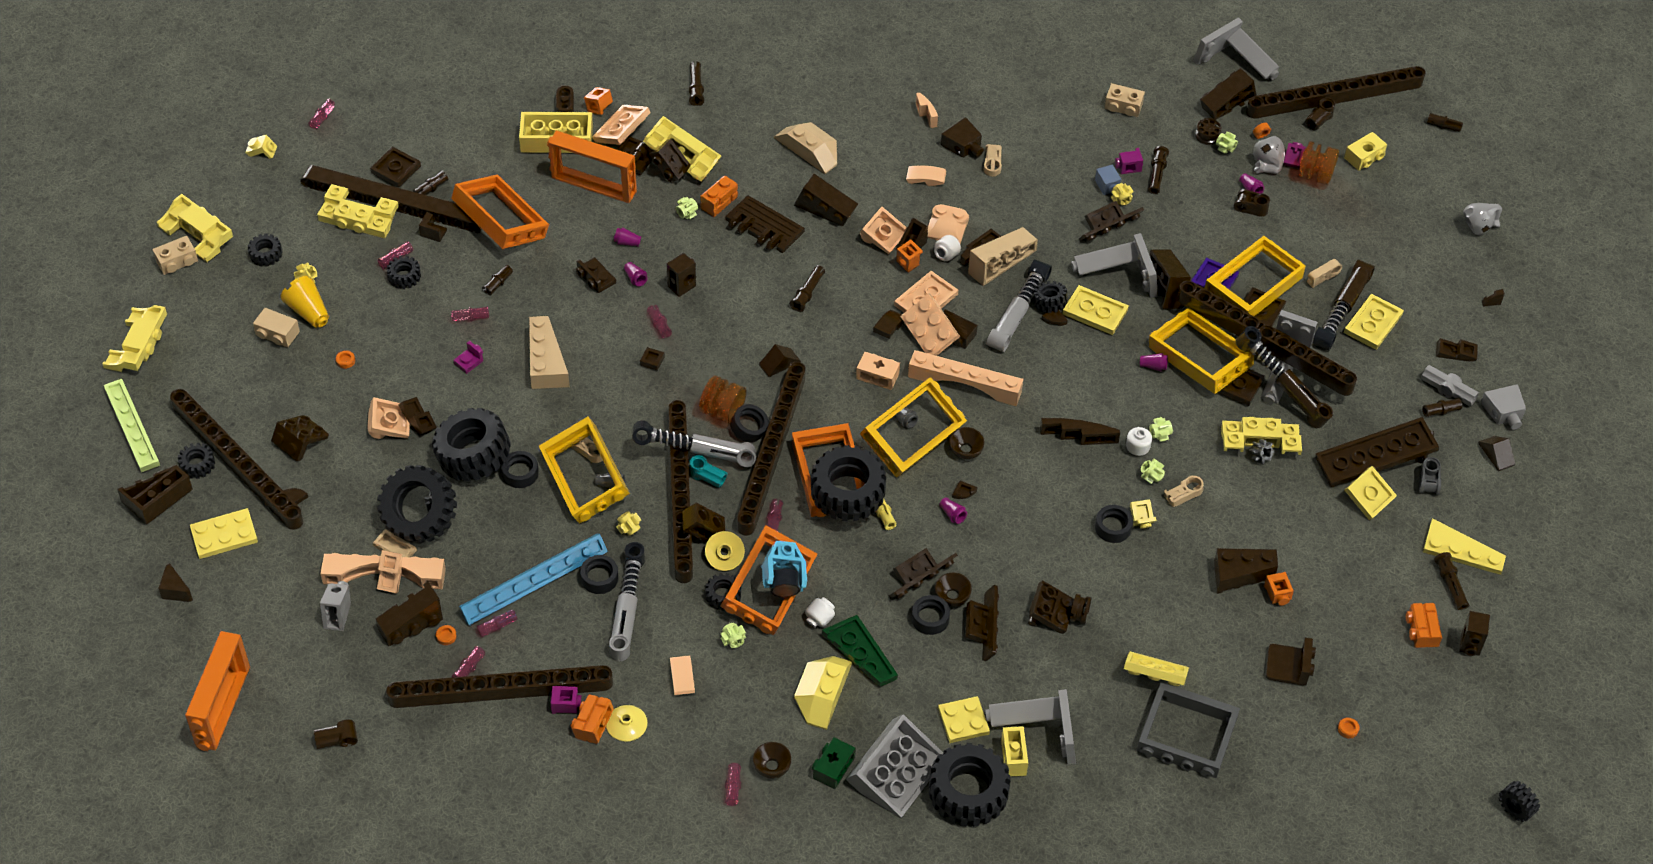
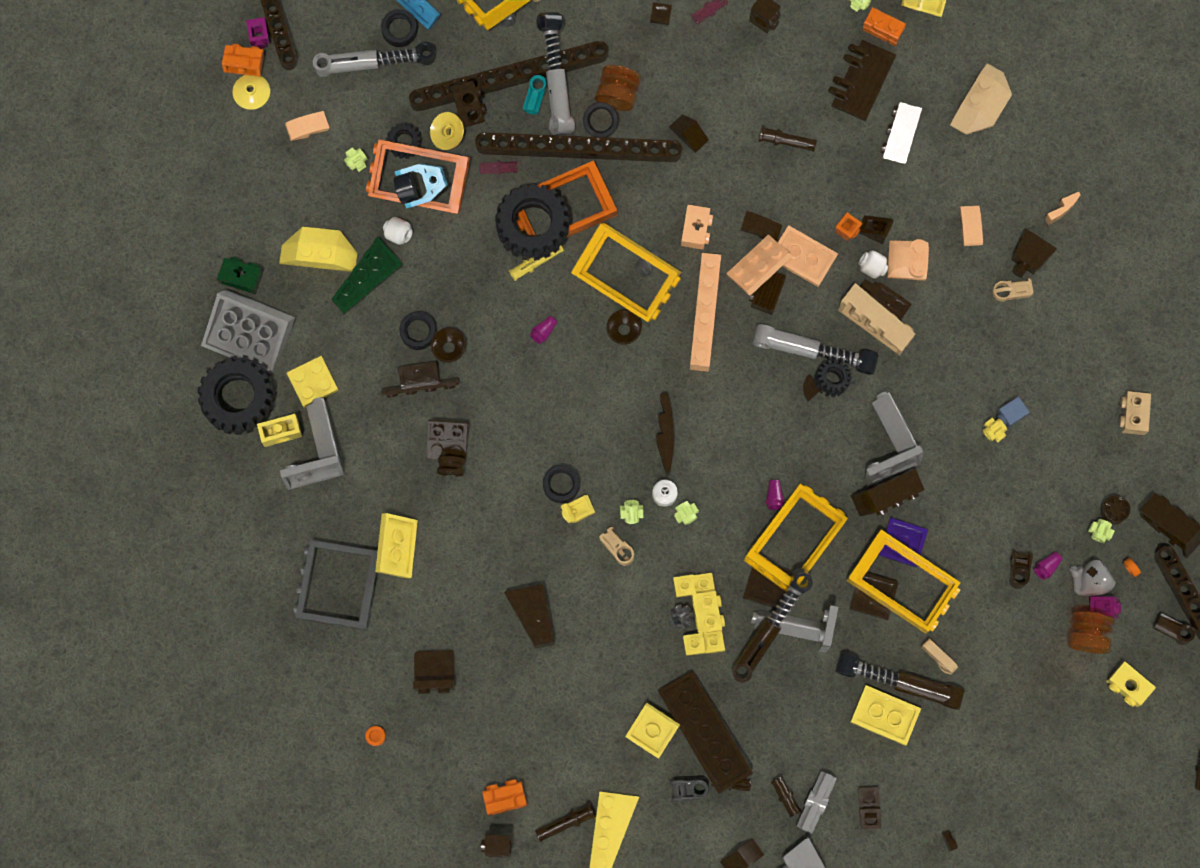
camera: 80 degrees right, 25 degrees up
(628, 523) = (459, 39): light yellow gear -> none
(733, 784) = (203, 194): clear pink pin -> none
(772, 752) = (228, 213): dark brown piece -> none
(883, 230) = (879, 197): light nougat slope -> none
(916, 568) = (464, 309): dark brown bracket -> none
(964, 490) = (571, 336): dark brown tile -> none
(1095, 310) = (829, 426): light yellow plate -> none
(1107, 217) = (956, 419): dark brown bracket -> none
(1129, 162) = (1045, 431): magenta brick -> none
(1159, 164) = (1053, 463): dark brown pin -> none
(1275, 341) = (825, 593): dark brown beam -> none
(1279, 588) = (519, 645): orange brick -> none
(1482, 217) = (1060, 819): light grey piece -> none

